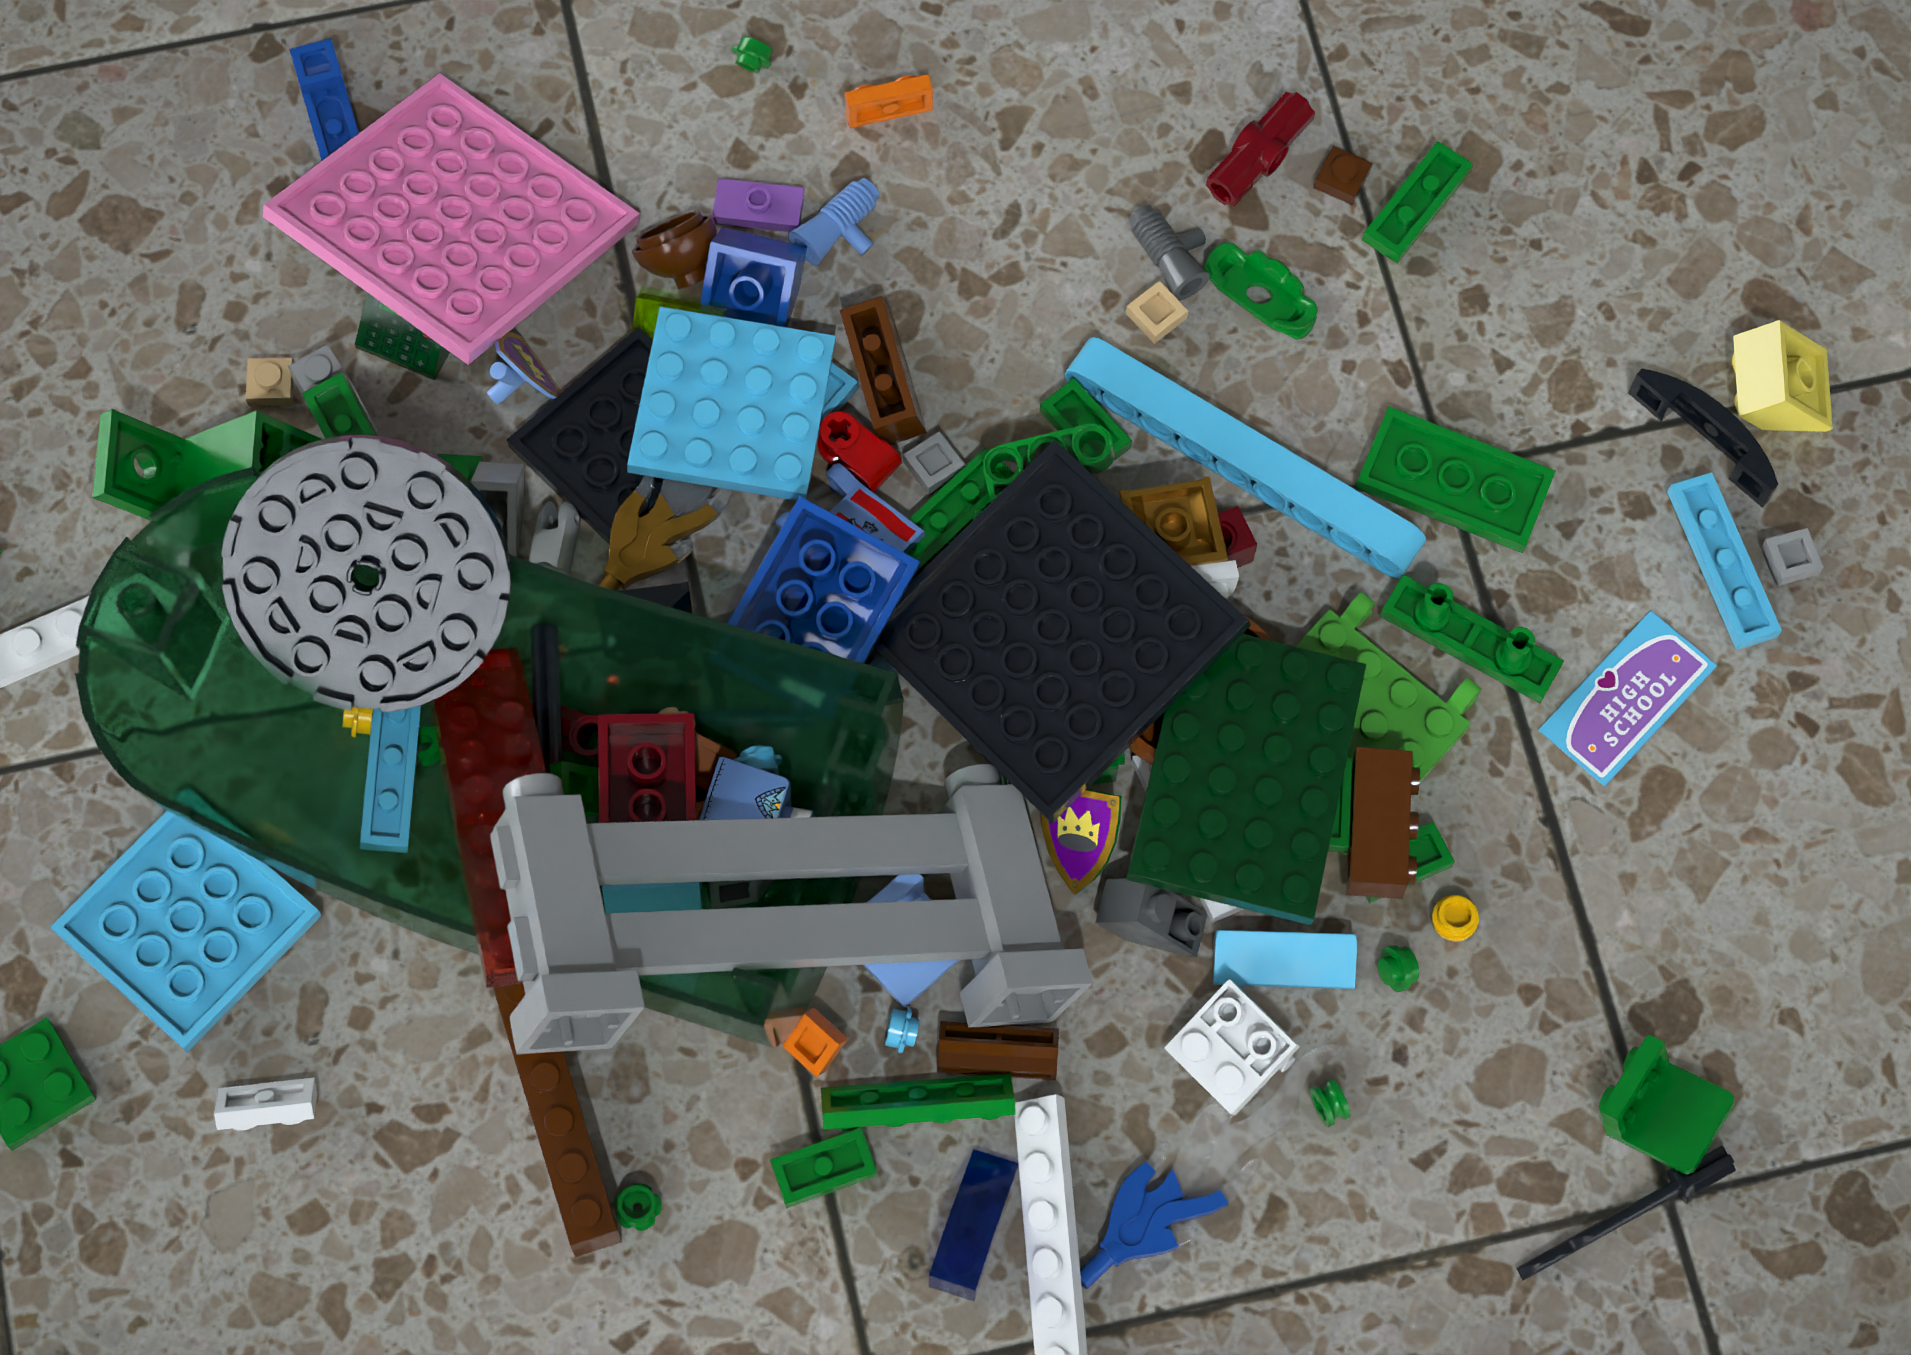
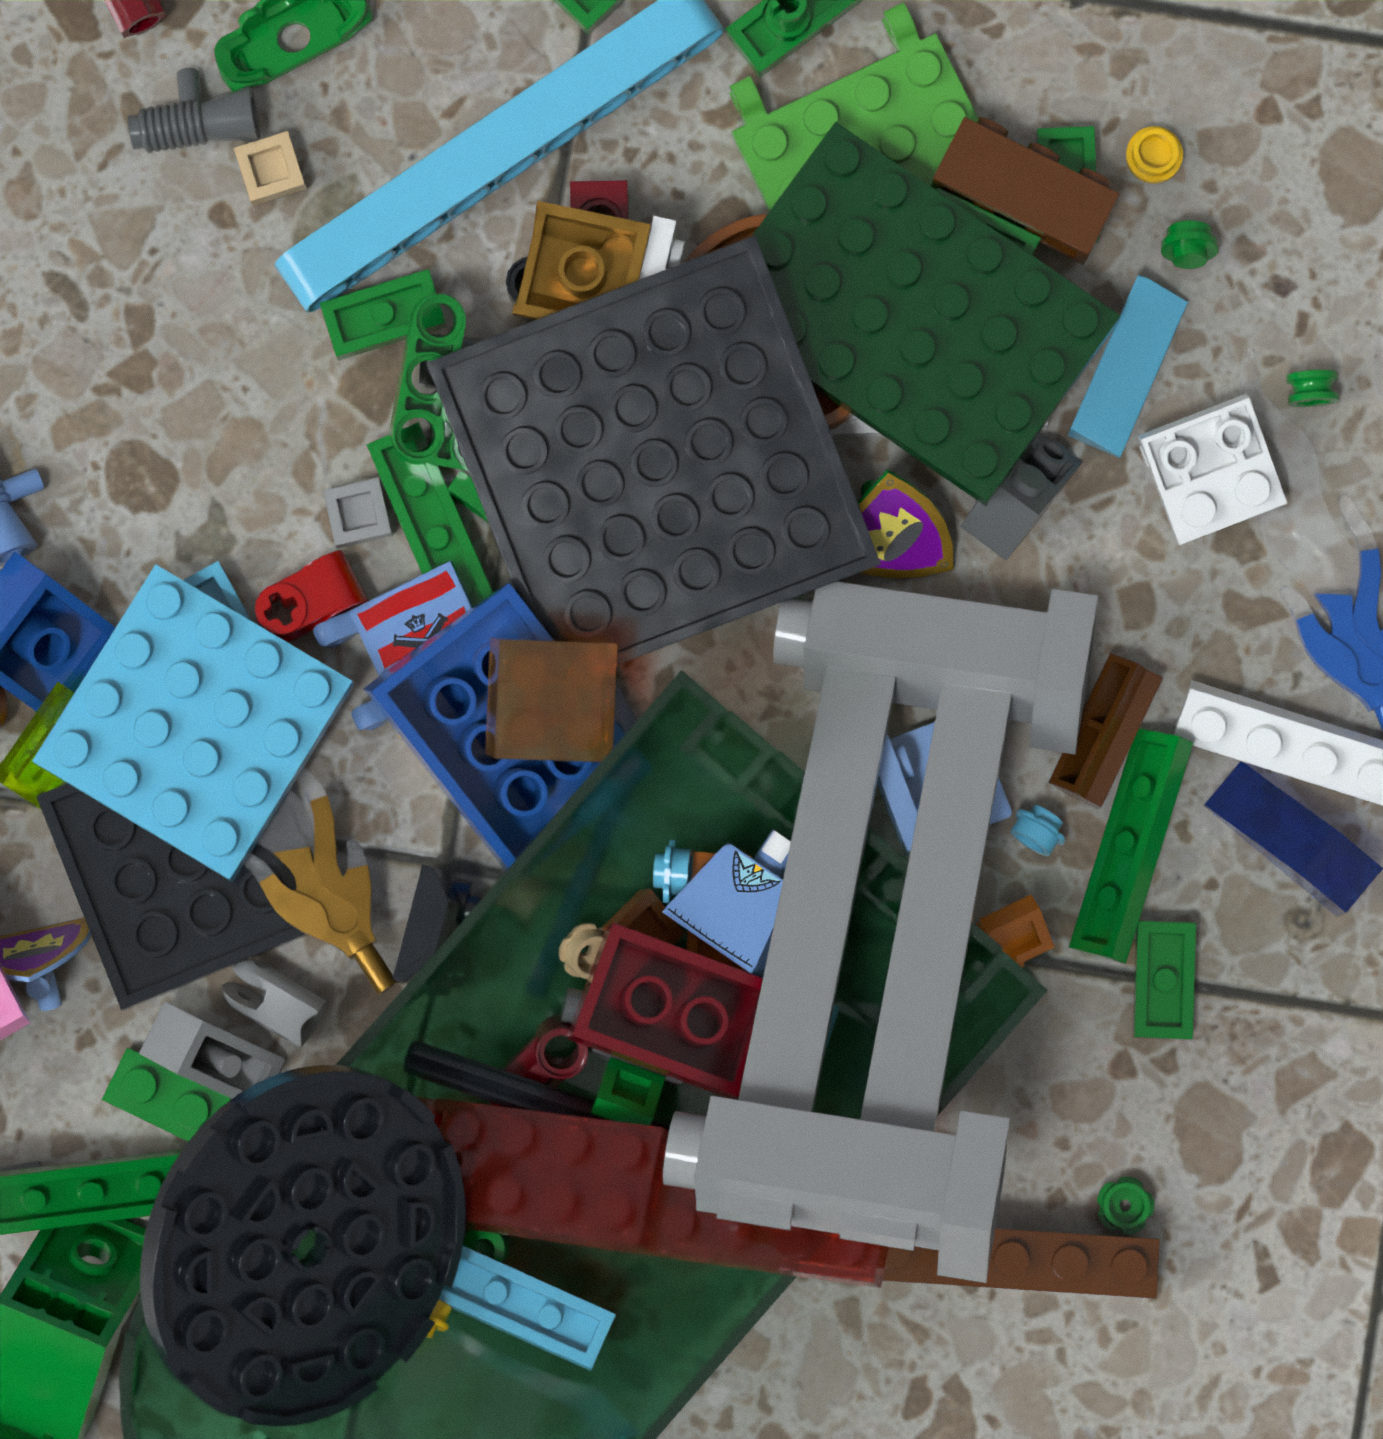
camera: 60 degrees left, 15 degrees up
(846, 613) = (550, 699): none -> clear orange brick
(883, 371) = (220, 526): reddish brown brick -> none

